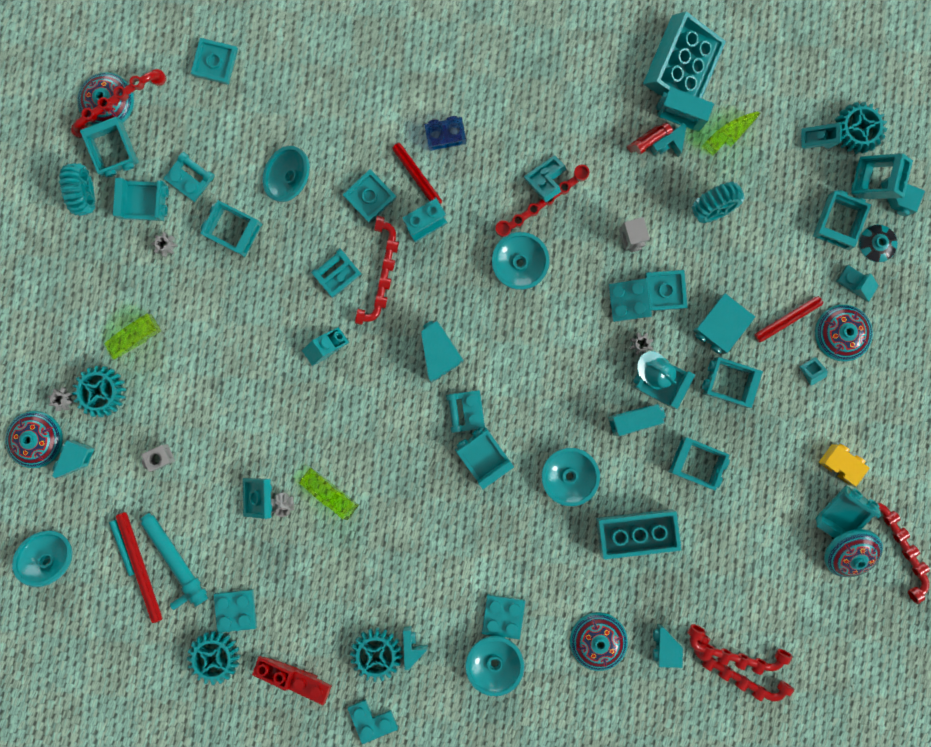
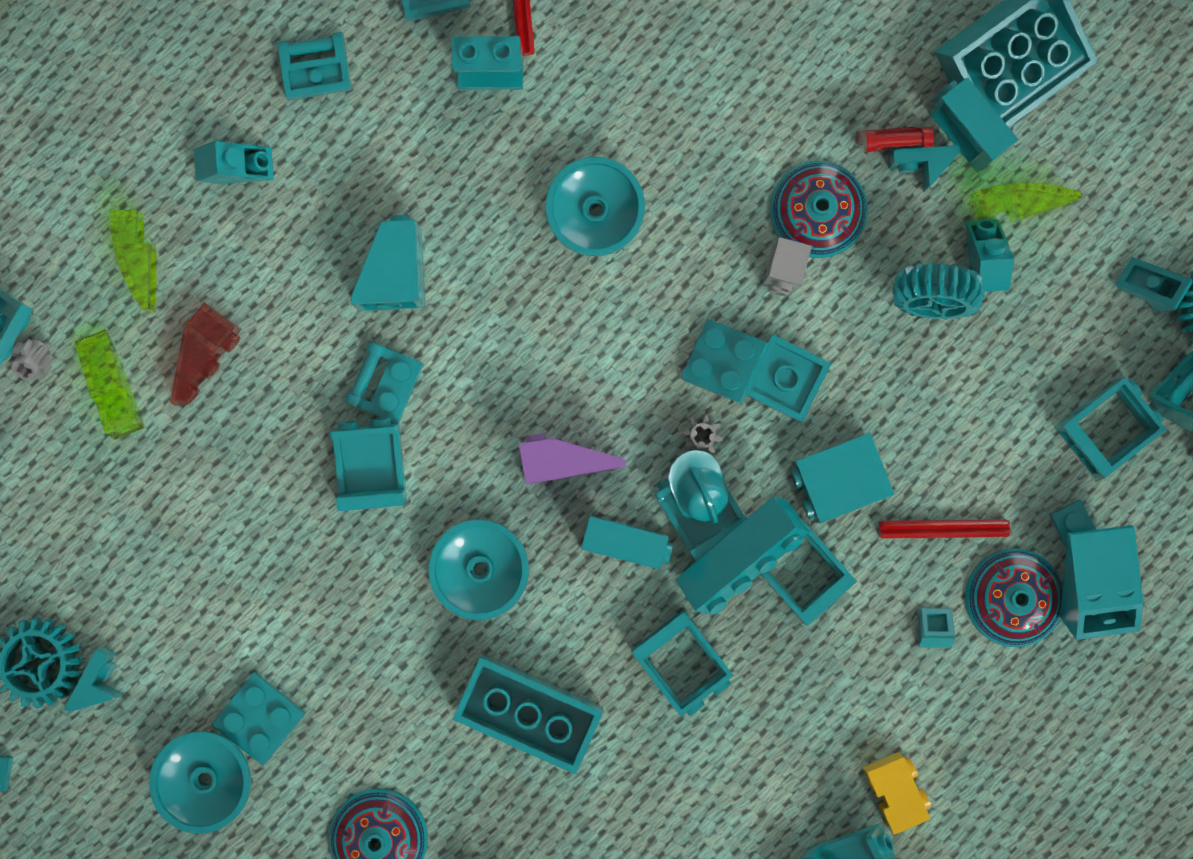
camera: 20 degrees right, 0 degrees up
(304, 422) = (135, 258): none -> clear neon green slope
(364, 445) = (201, 346): none -> clear red slope
(384, 282) = (377, 120): red bar -> none
(503, 227) = (760, 130): red bar -> none
(542, 178) = (702, 101): teal plate -> none
(576, 400) = (555, 459): none -> medium lavender slope
(621, 204) = (798, 219): none -> dish
(699, 392) = (742, 556): none -> teal brick
(730, 168) = (990, 254): none -> teal slope
(870, 244) = (1131, 498): dish -> none
(885, 300) = (1102, 583): none -> teal slope

